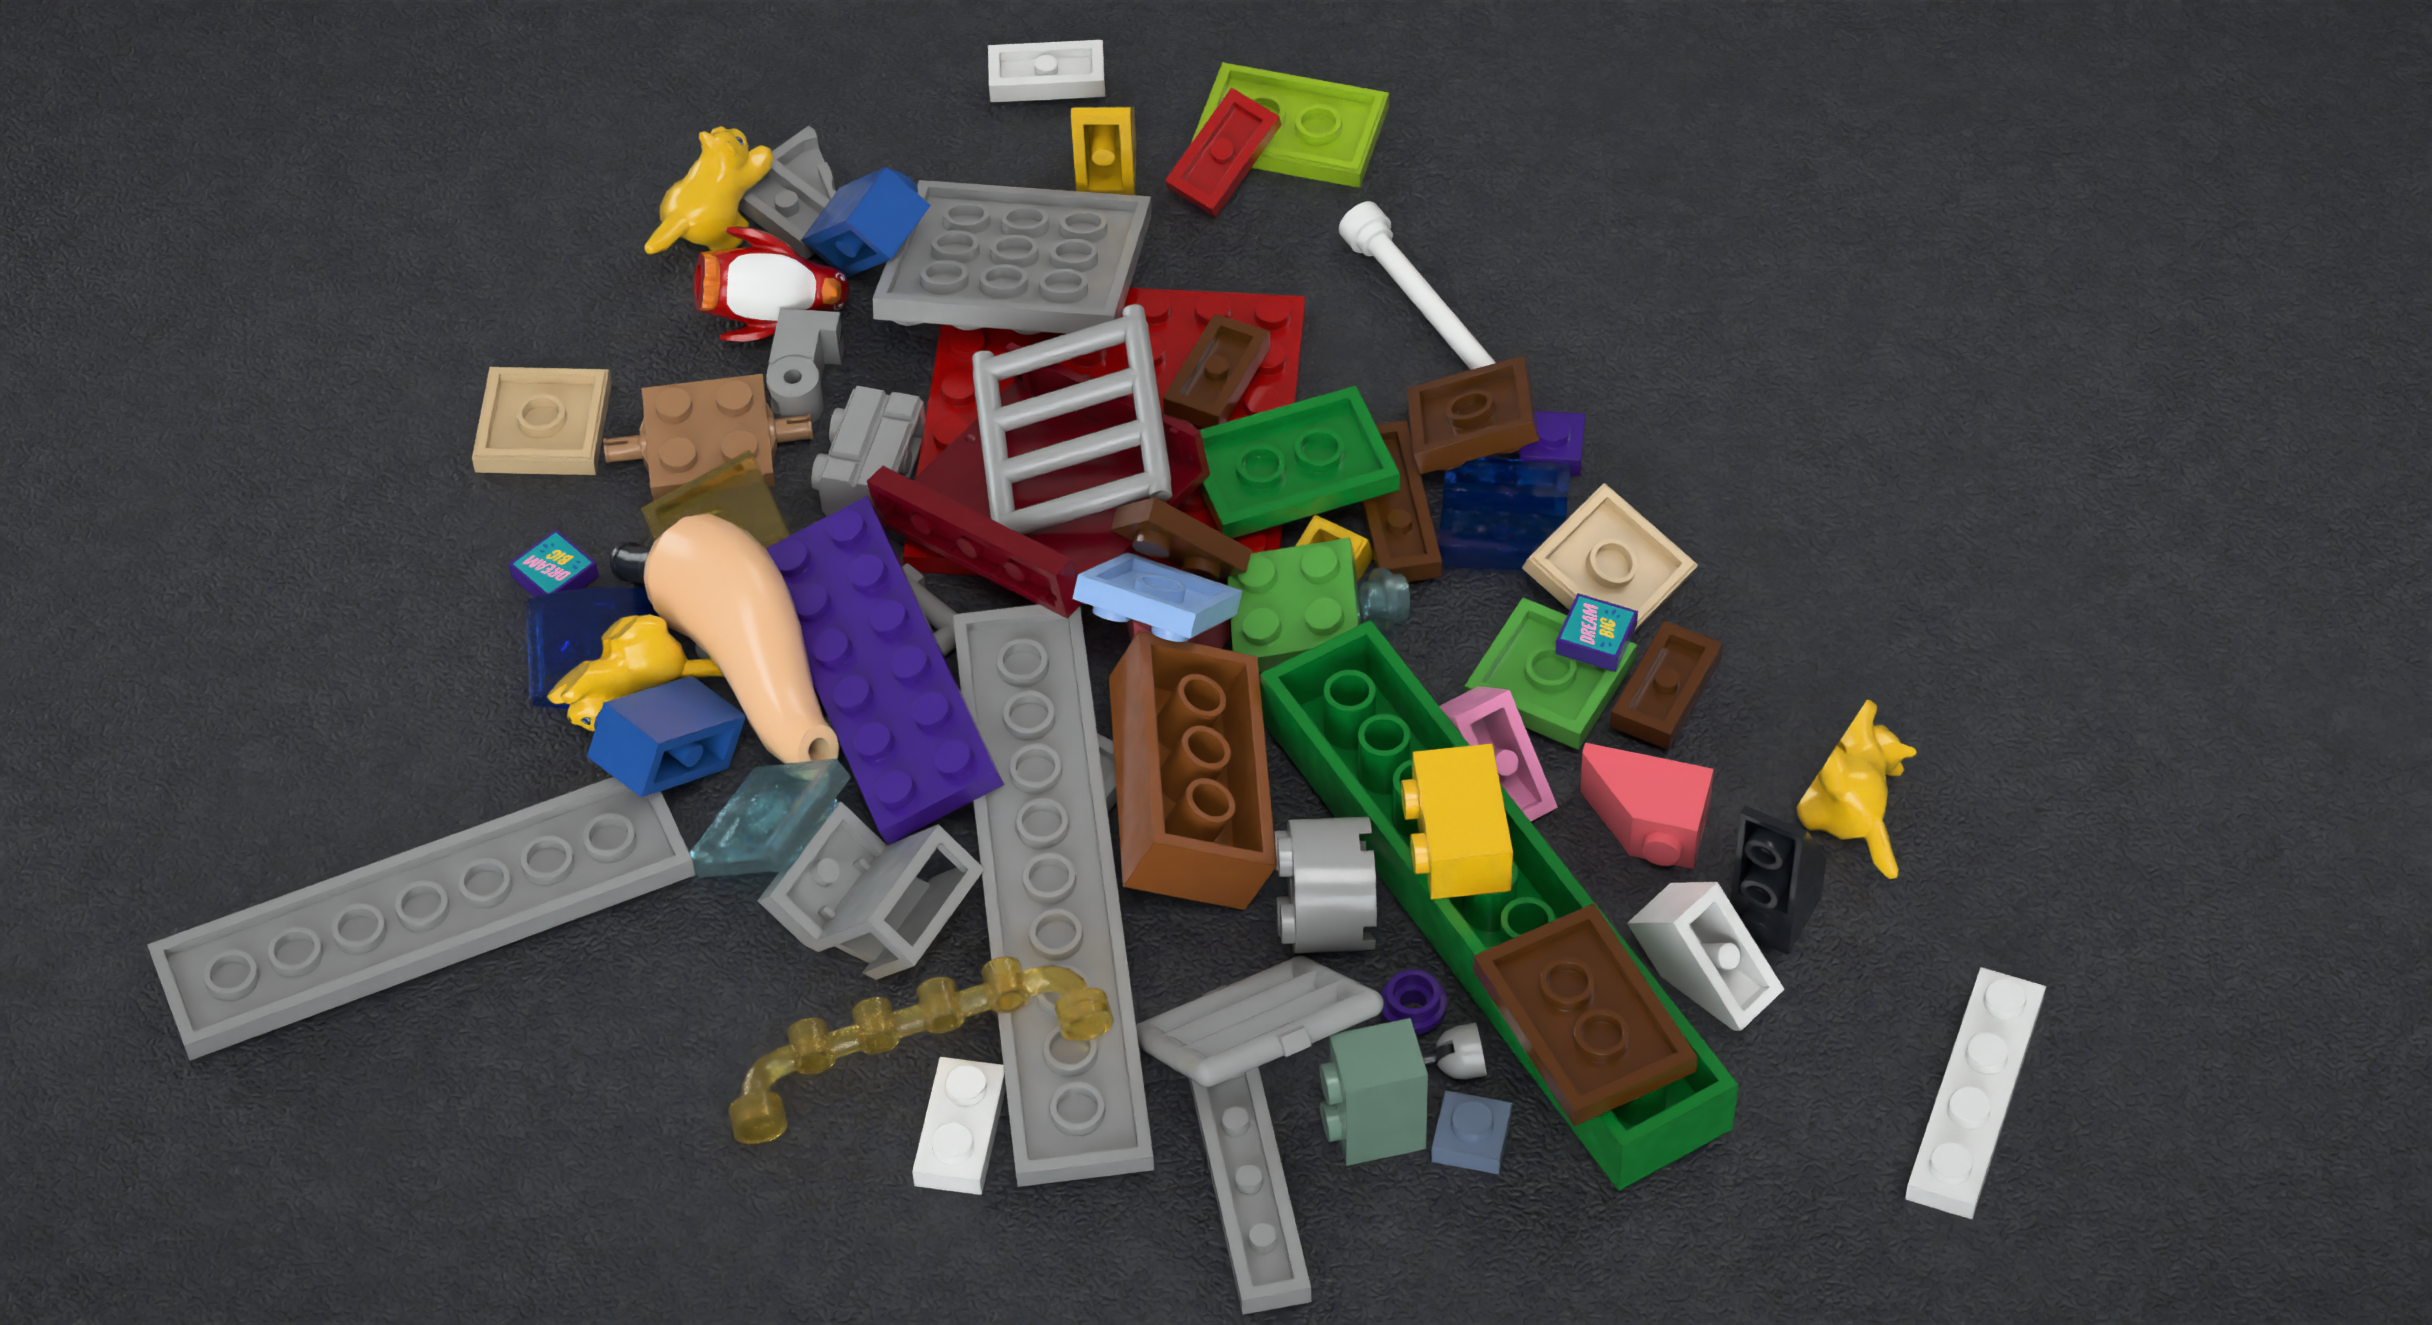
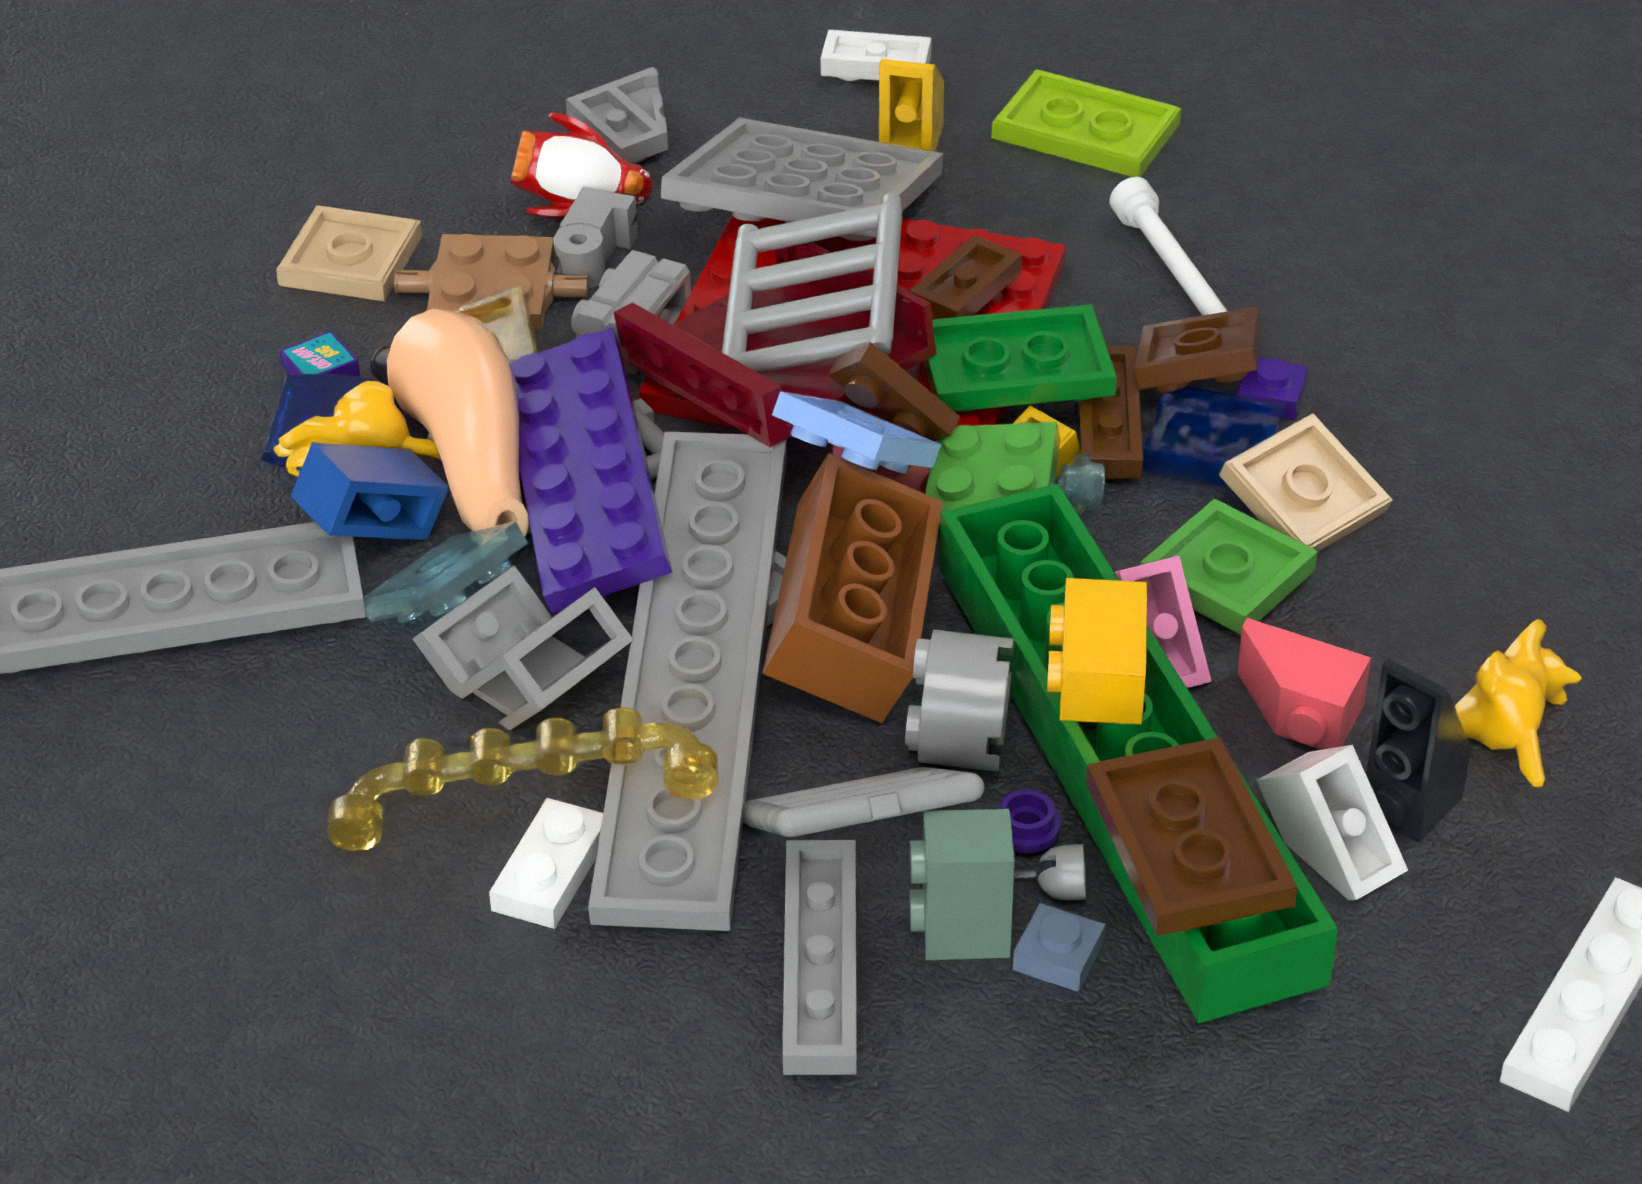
camera: 10 degrees right, 10 degrees down
(709, 195) = (557, 88): yellow animal -> none
(866, 221) = (678, 128): blue brick -> none
(1223, 152) = (1017, 128): red plate -> none
(1596, 632) = (1279, 532): tile -> none
(1666, 685) = (1340, 591): reddish brown plate -> none

